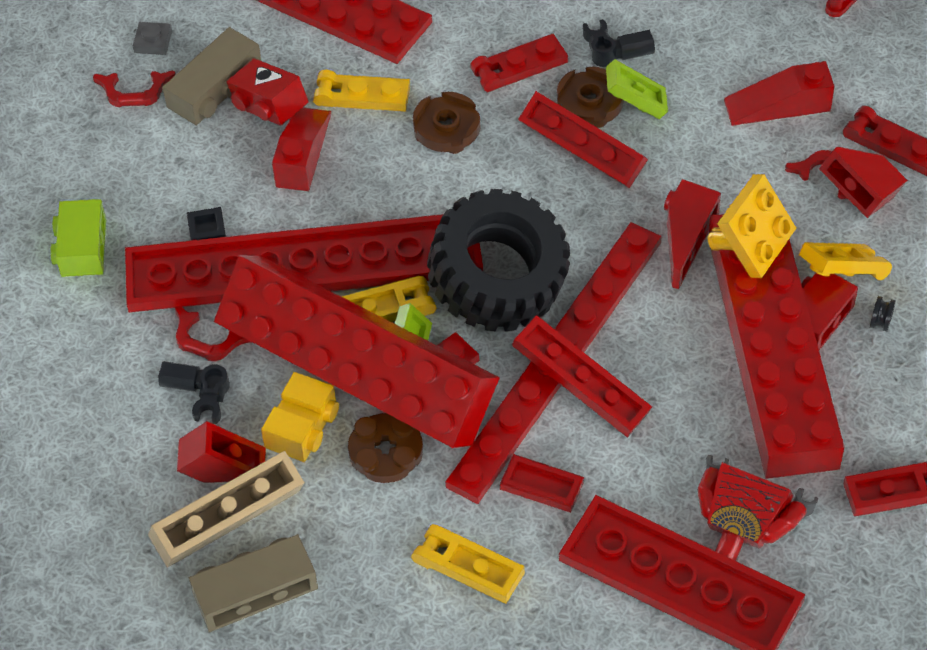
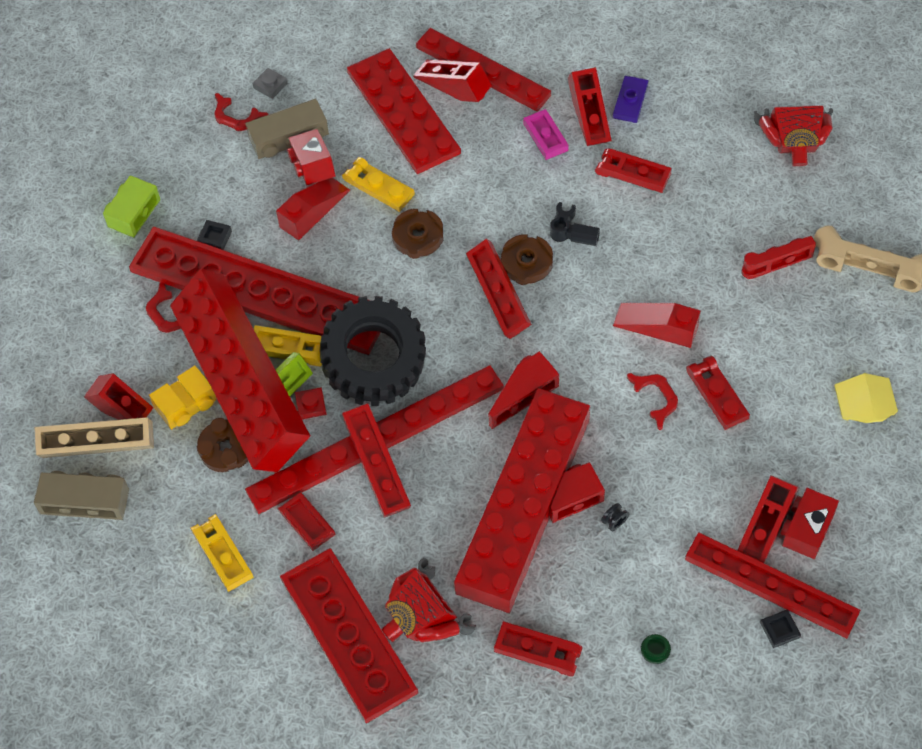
camera: 30 degrees right, 5 degrees up
(211, 381) = (147, 345): black bar -> none
(519, 62) = (497, 211): red plate -> none
(636, 89) = (557, 269): lime plate -> none
(754, 227) = (549, 412): yellow plate -> none
(844, 259) = (609, 465): yellow plate -> none
(863, 178) = (669, 412): red slope -> none

